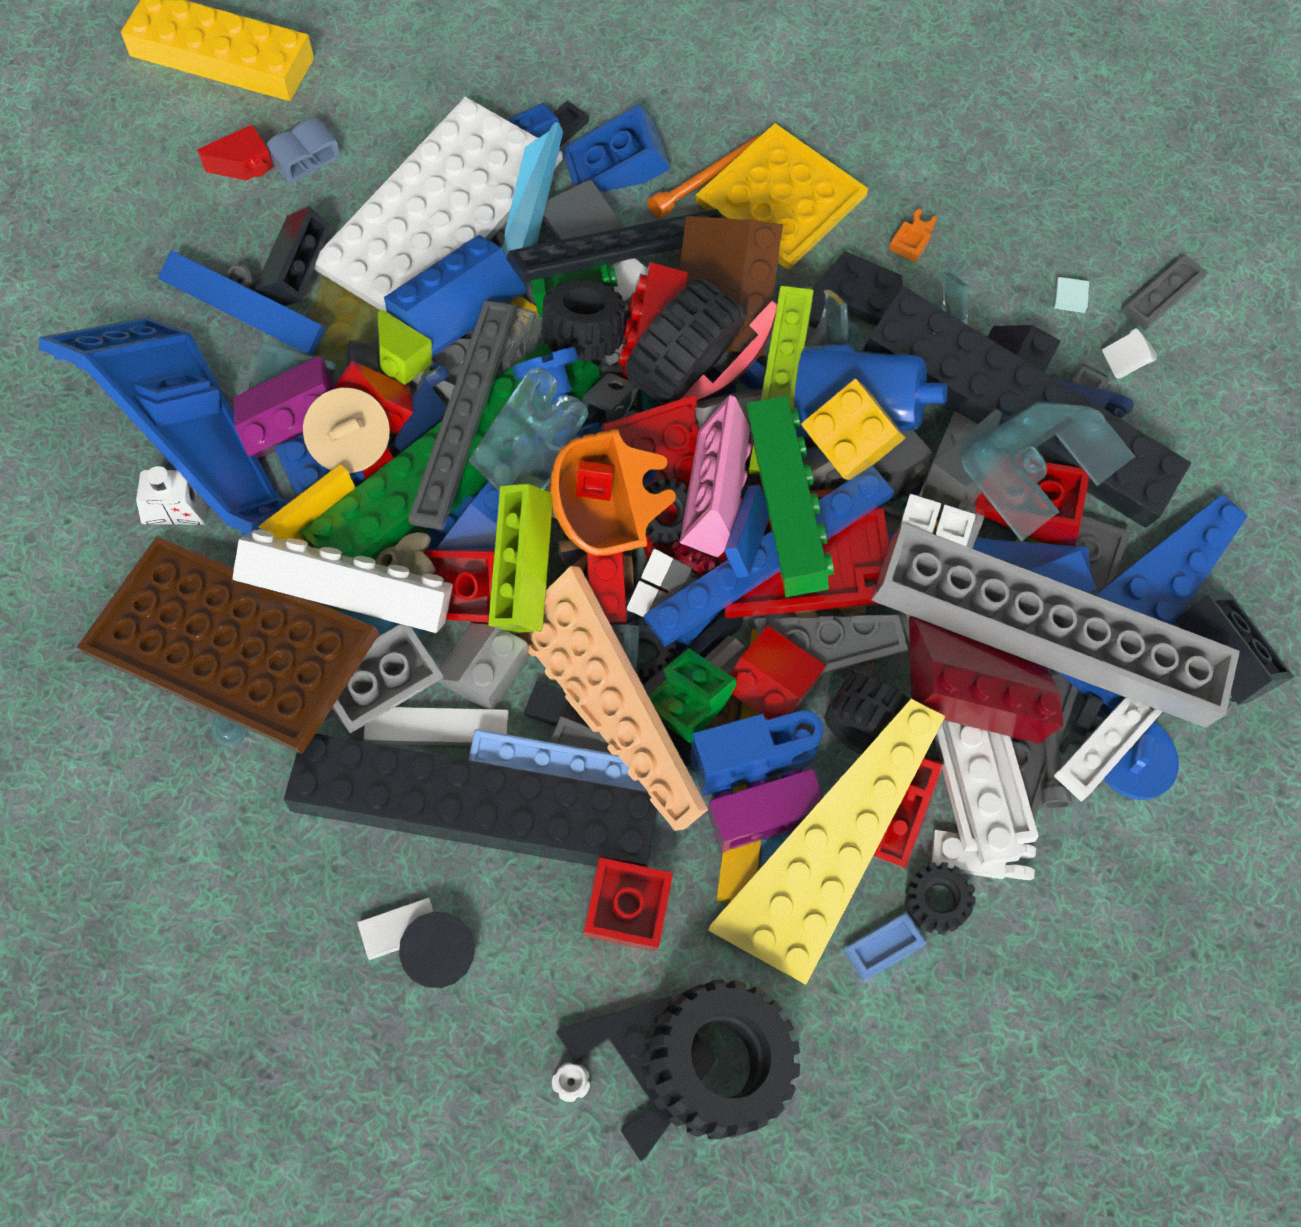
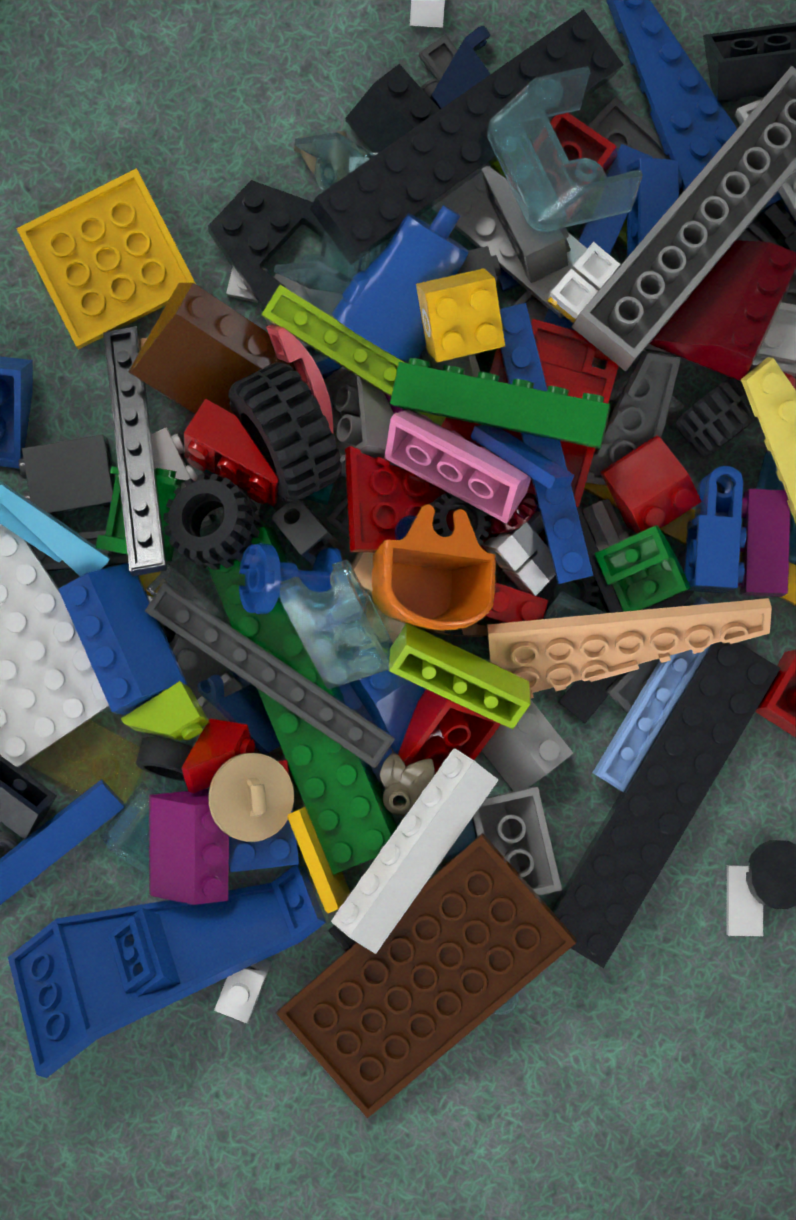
camera: 65 degrees left, 20 degrees up
(434, 726) = (572, 798): white tile -> none
(594, 480) = (411, 578): red plate -> none
(662, 202) = (69, 383): orange piece -> none
(913, 238) = (211, 150): orange plate -> none
(1071, 294) = (335, 23): light aqua tile -> none

